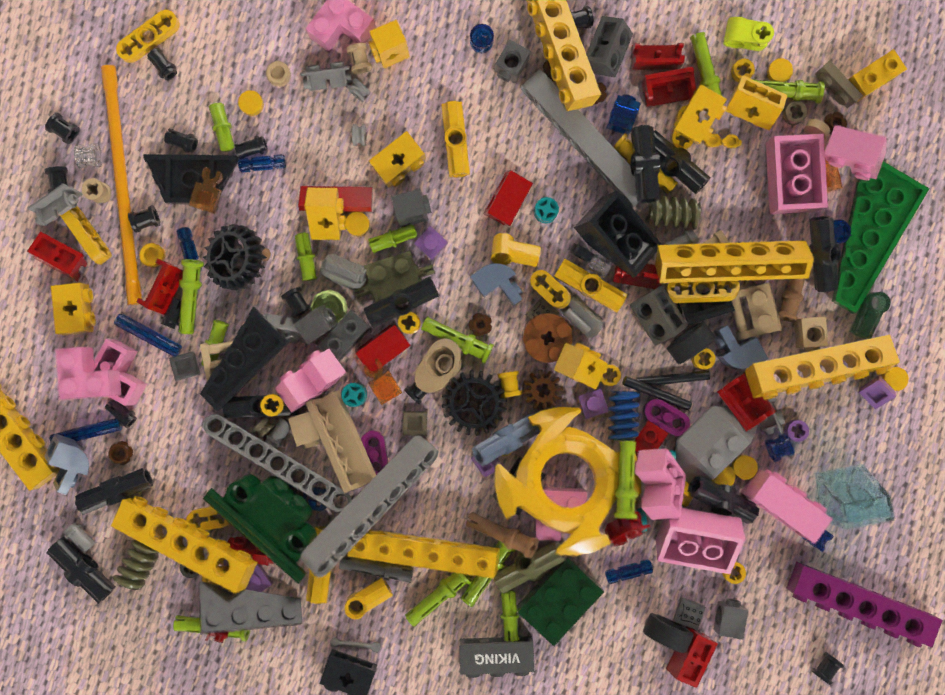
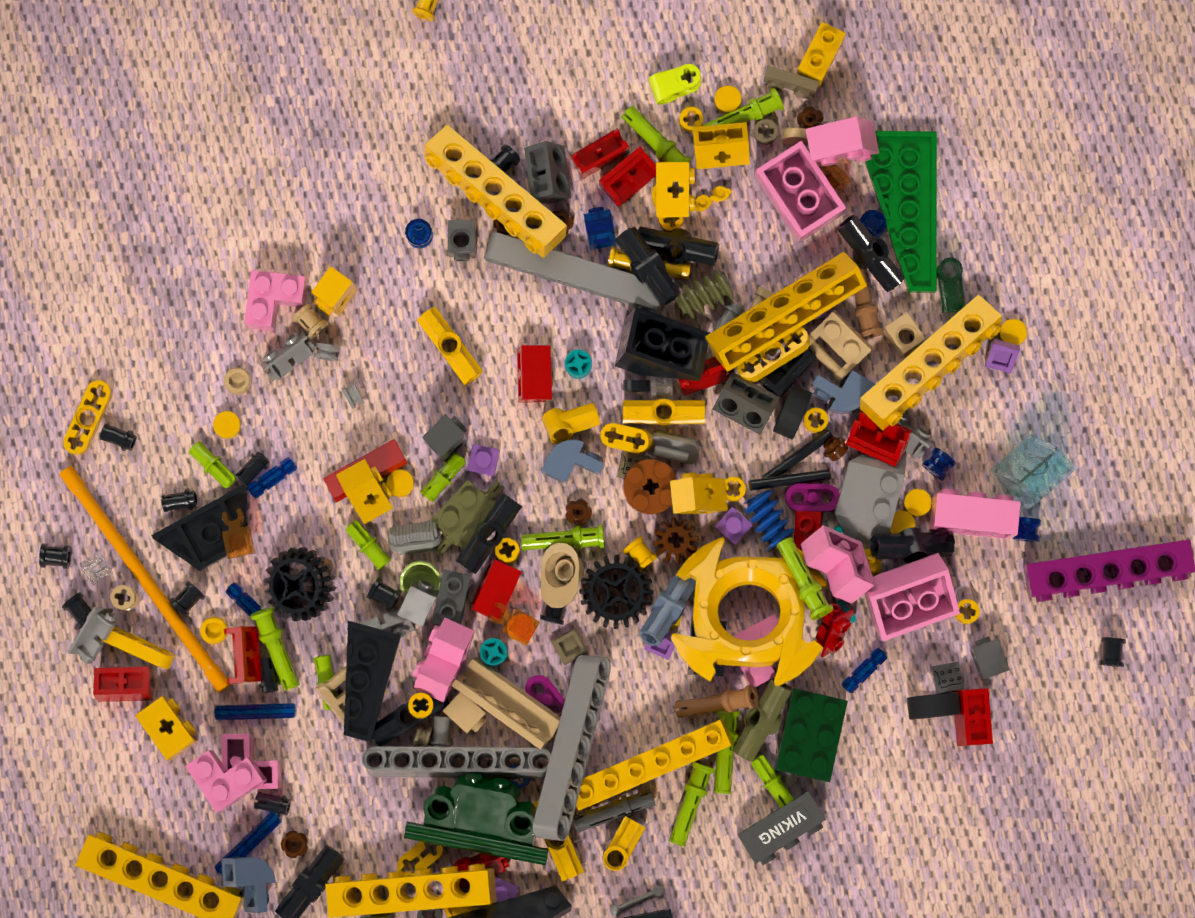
camera: 30 degrees left, 5 degrees down
(184, 366) = (309, 721): flat silver tile -> none
(404, 148) = (402, 383): yellow brick -> none
(706, 389) = (835, 448): none -> reddish brown plate
(802, 426) = (951, 431): medium lavender bush -> none

